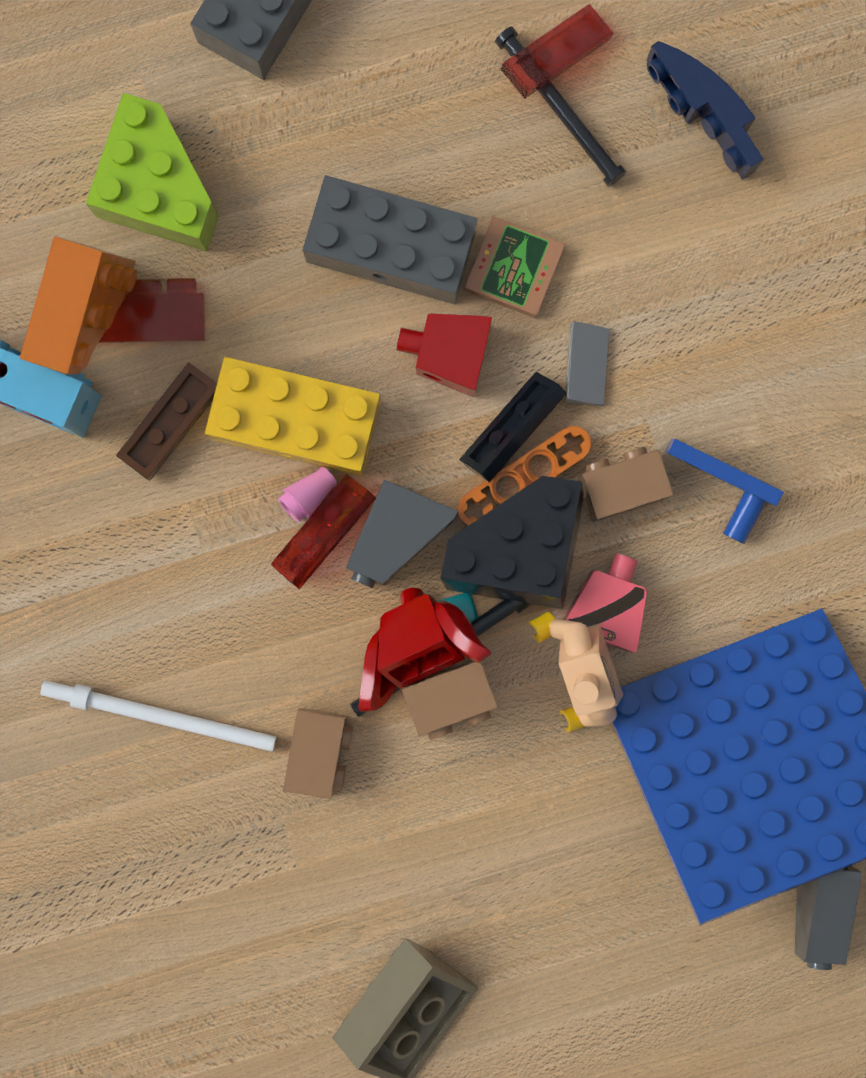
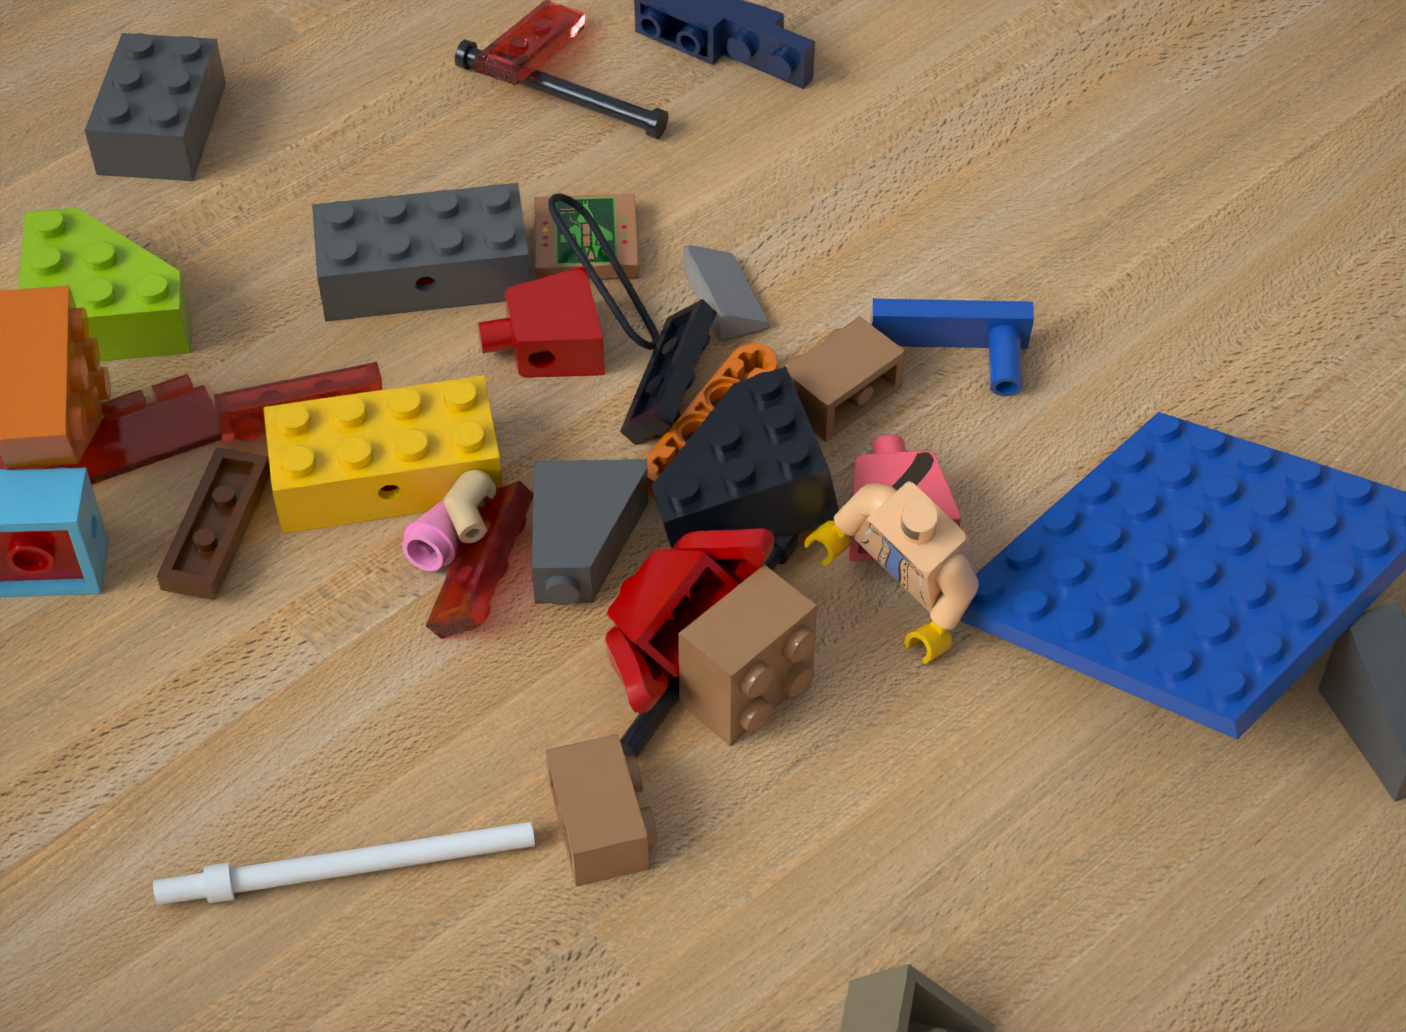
camera: 25 degrees left, 35 degrees down
(255, 349) = (242, 411): none -> clear red plate
(328, 488) = (463, 501): none -> tan arm
(493, 318) = (594, 276): none -> black piece

